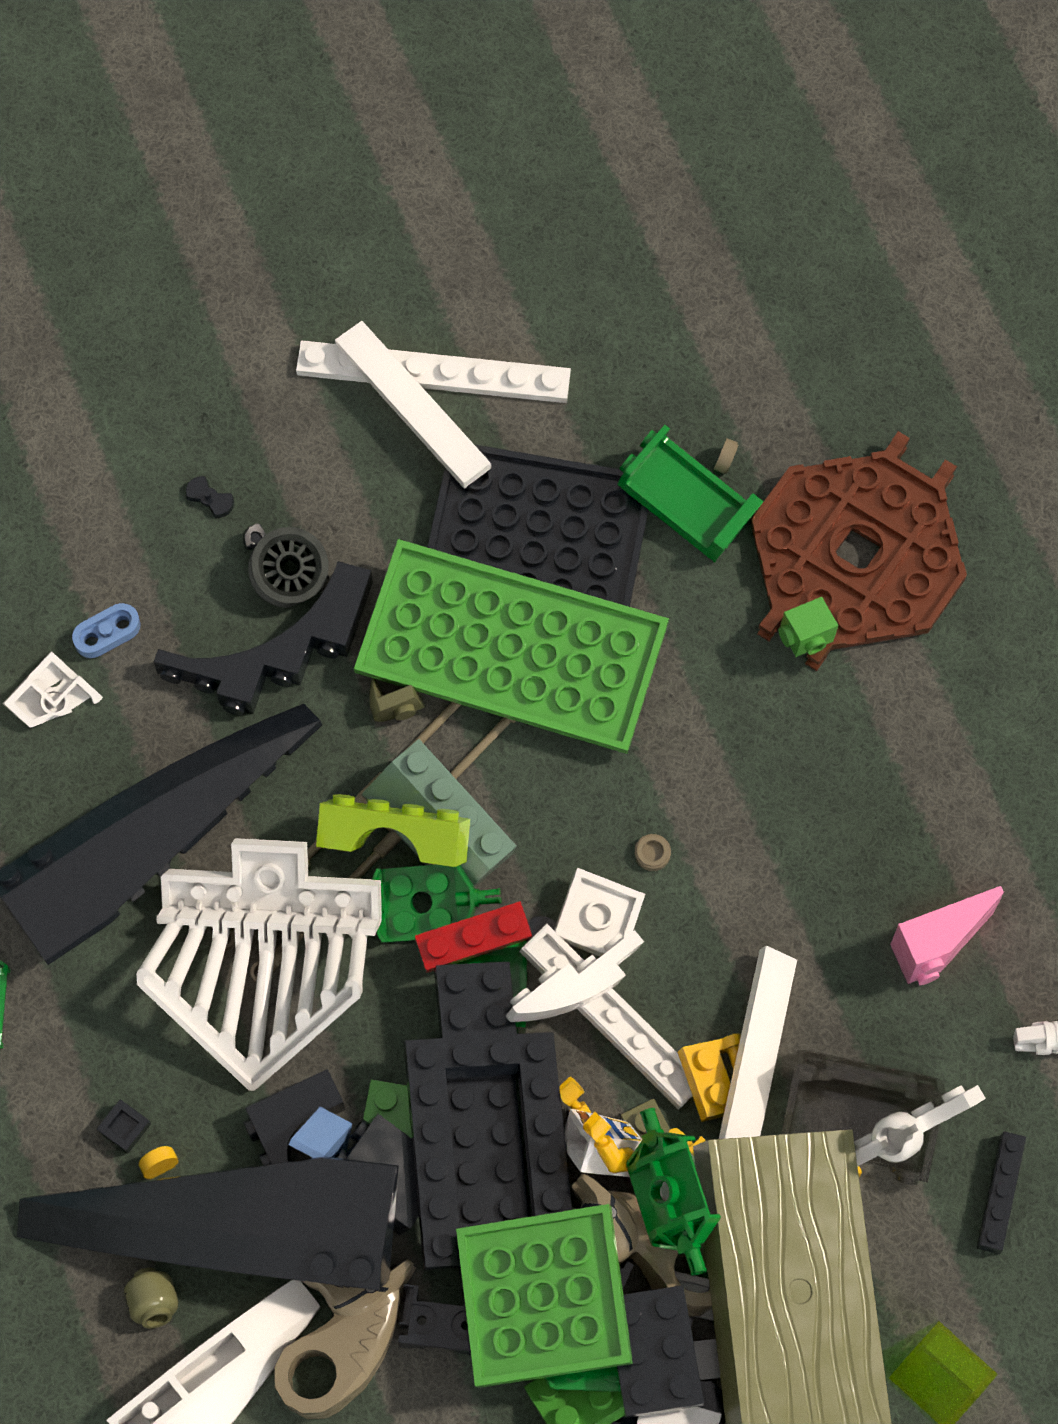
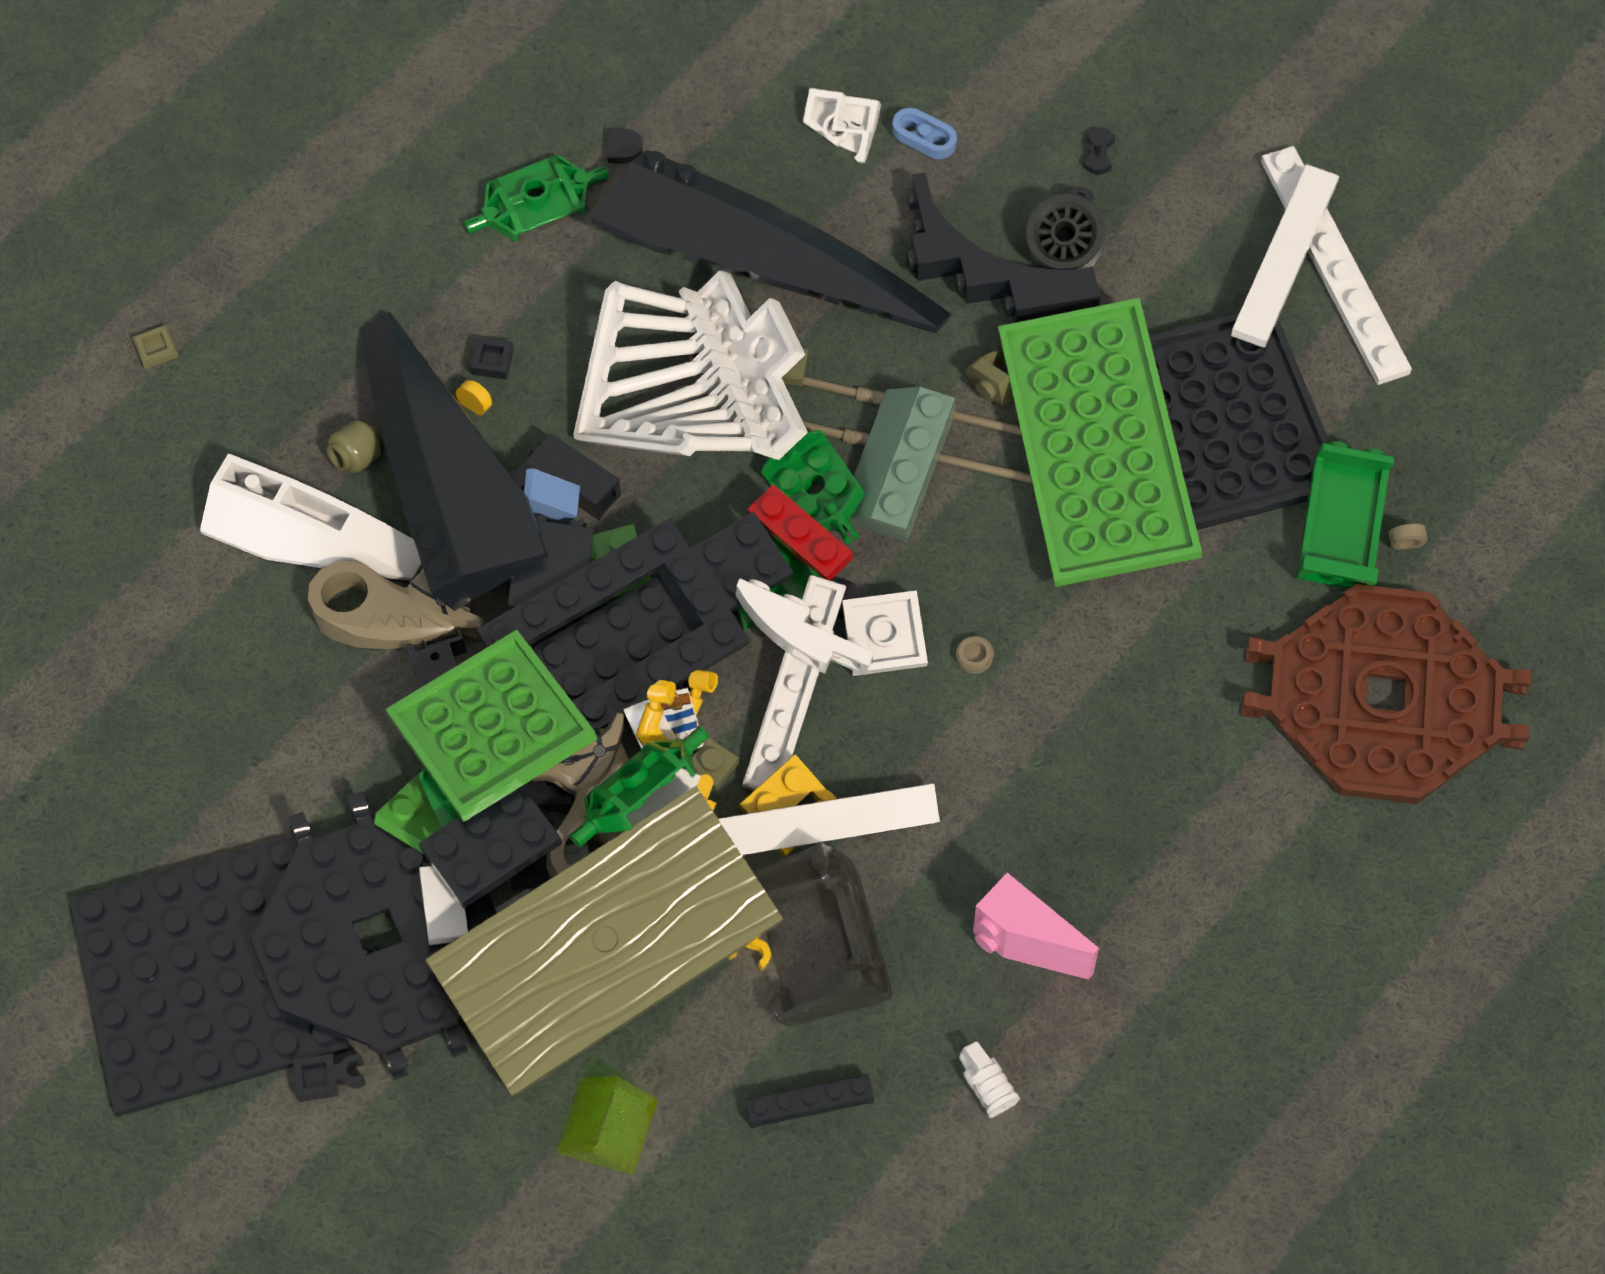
camera: 65 degrees right, 5 degrees down
(437, 837) = (871, 452): lime arch -> none
(808, 627) = (1267, 673): bright green brick -> none
(901, 1134) = (796, 958): white plate -> none

